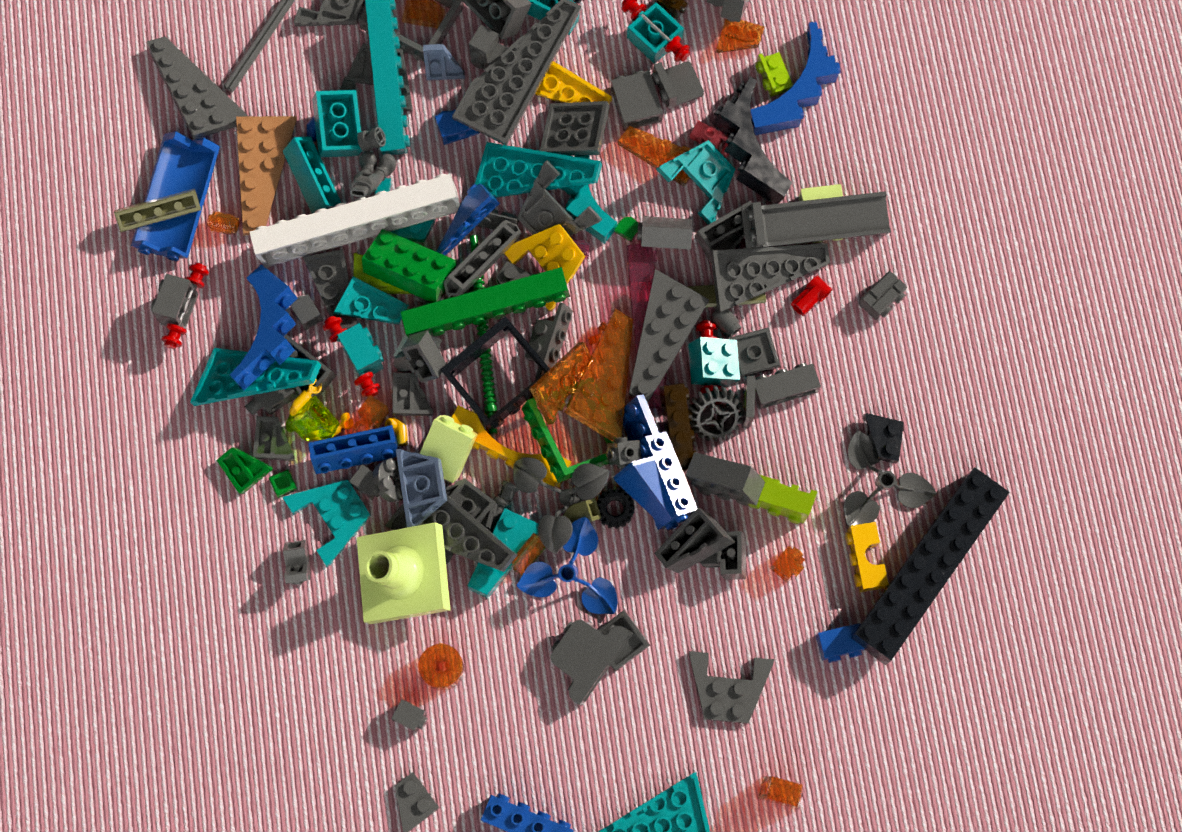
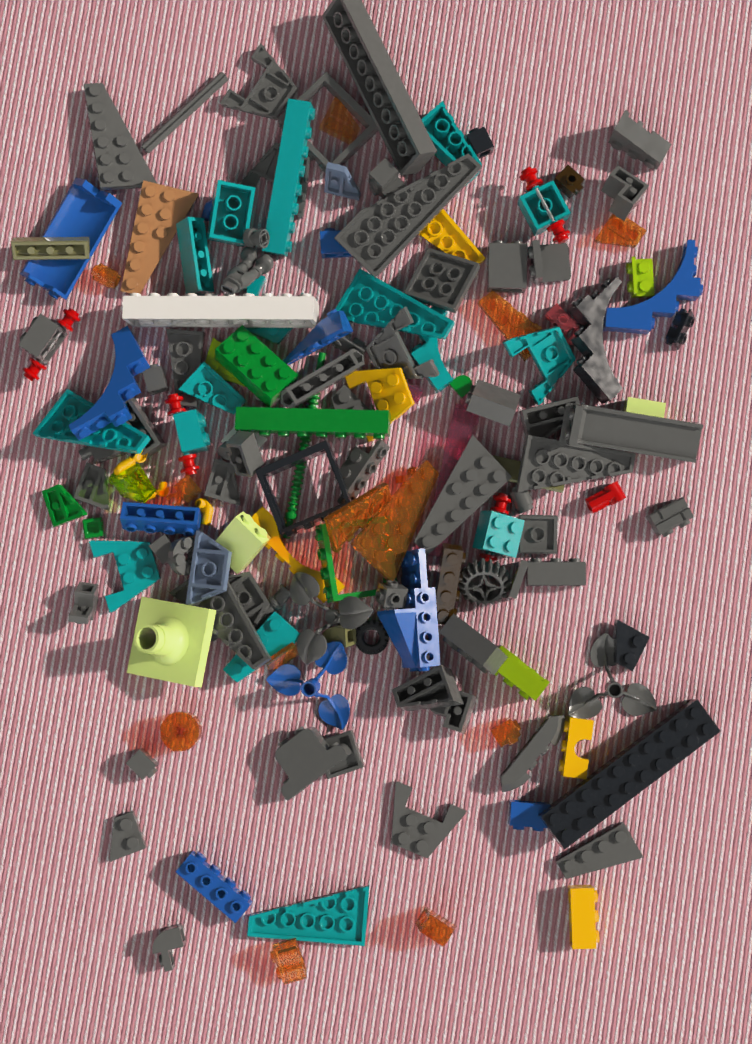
camera: 25 degrees right, 10 degrees up
(813, 602) = (525, 760): none -> dark grey brick
(831, 102) = (684, 322): none -> black hinge
(933, 657) = (603, 851): none -> dark grey wing
(933, 733) = (583, 916): none -> yellow brick

